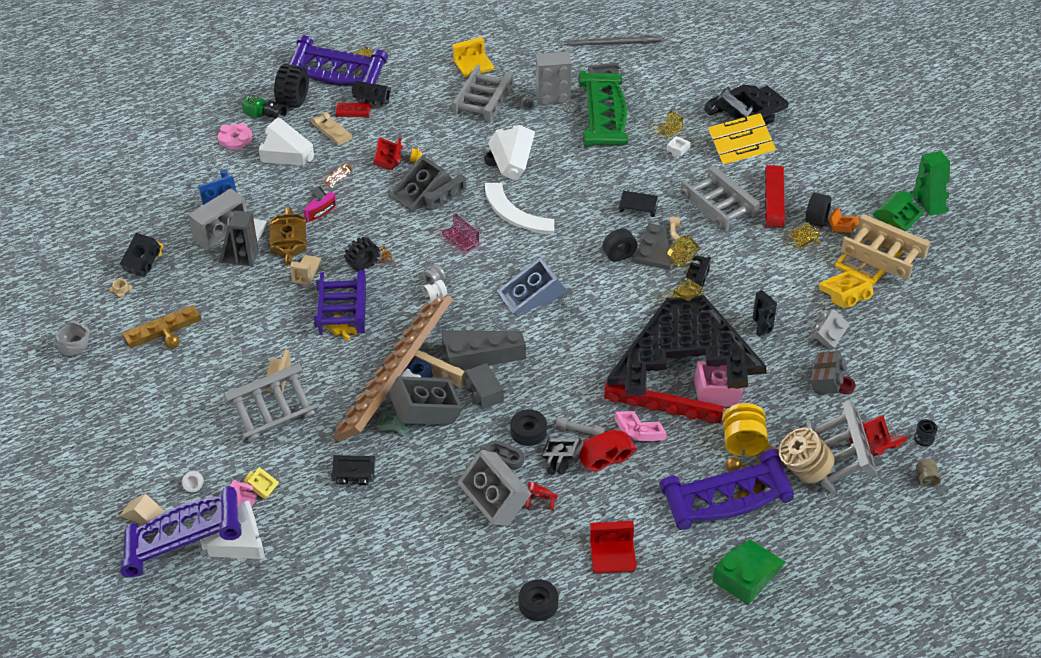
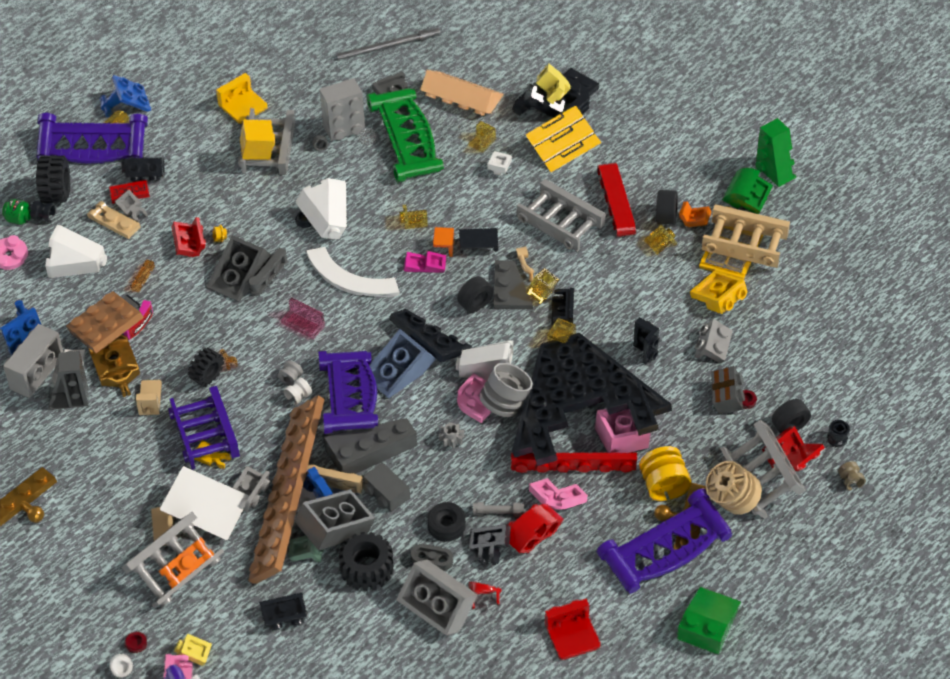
camera: 15 degrees left, 5 degrees up
(214, 465) = (135, 642): none -> dark red tile
(280, 406) = (186, 562): none -> orange plate
(290, 201) = (104, 321): none -> medium nougat plate
(322, 363) = (211, 501): none -> white sticker
(349, 119) = (130, 205): none -> light grey plate
(361, 360) = (252, 483): none -> light grey bracket
(379, 35) = (127, 93): none -> blue plate
(421, 365) = (320, 486): none -> blue plate
(442, 455) = (366, 575): none -> black tyre
(471, 86) = (257, 139): none -> yellow head
(474, 285) = (341, 417): none -> dark purple piece
(558, 355) = (451, 435): none -> light grey gear
(568, 272) = (428, 336): none -> black wing
(587, 176) = (413, 219): none -> clear yellow bracket
(587, 328) = (469, 400): none -> bright pink plate
(589, 214) = (420, 263): none -> dark pink slope
(608, 195) = (444, 238): none -> orange panel
(612, 302) = (483, 359): none -> white slope
(619, 326) = (505, 389): none -> light grey wheel
(663, 86) = (460, 91): none -> light nougat slope
(745, 91) = (553, 83): none -> light yellow brick
(885, 404) = (791, 414): none -> black tyre

